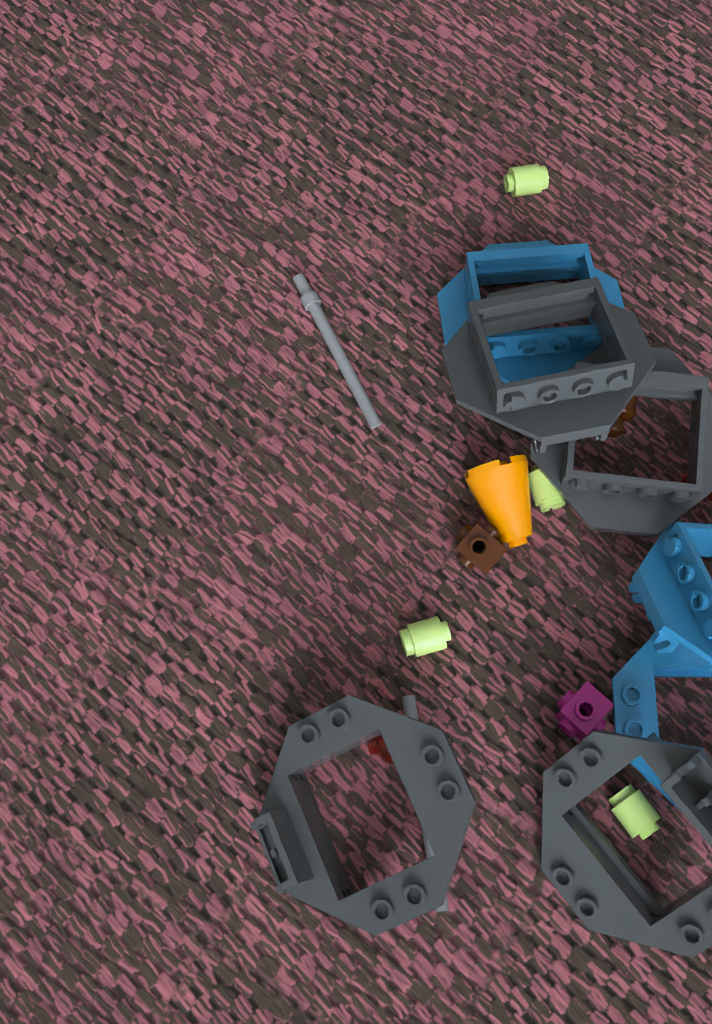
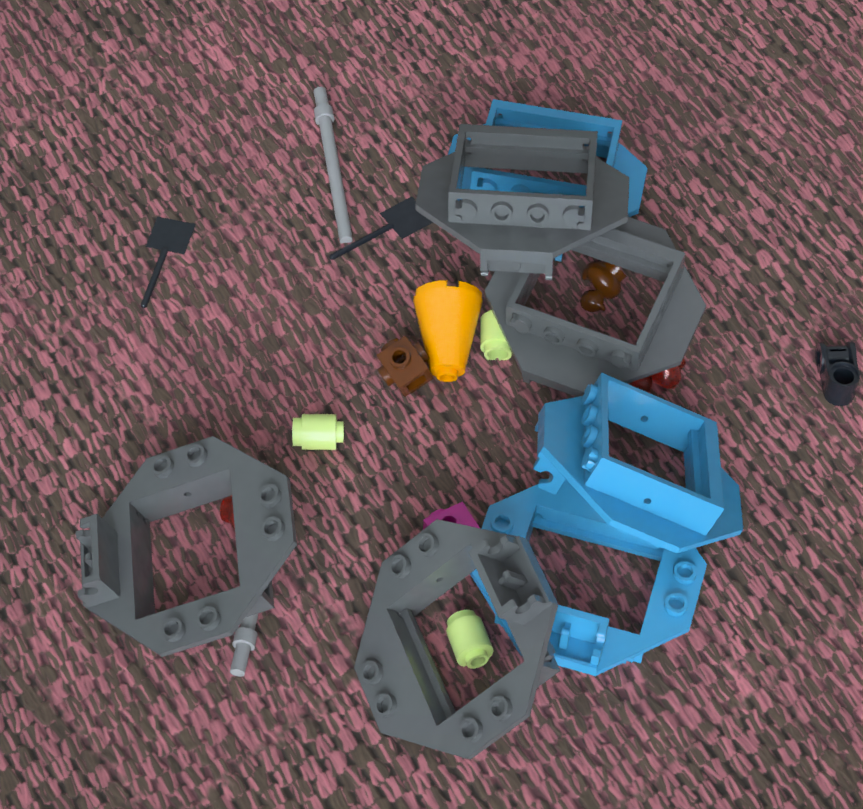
camera: 15 degrees right, 15 degrees down
(216, 466) = (166, 236): none -> black piece
(417, 386) = (401, 218): none -> black piece
(526, 180) = (591, 58): yellowish green brick -> none

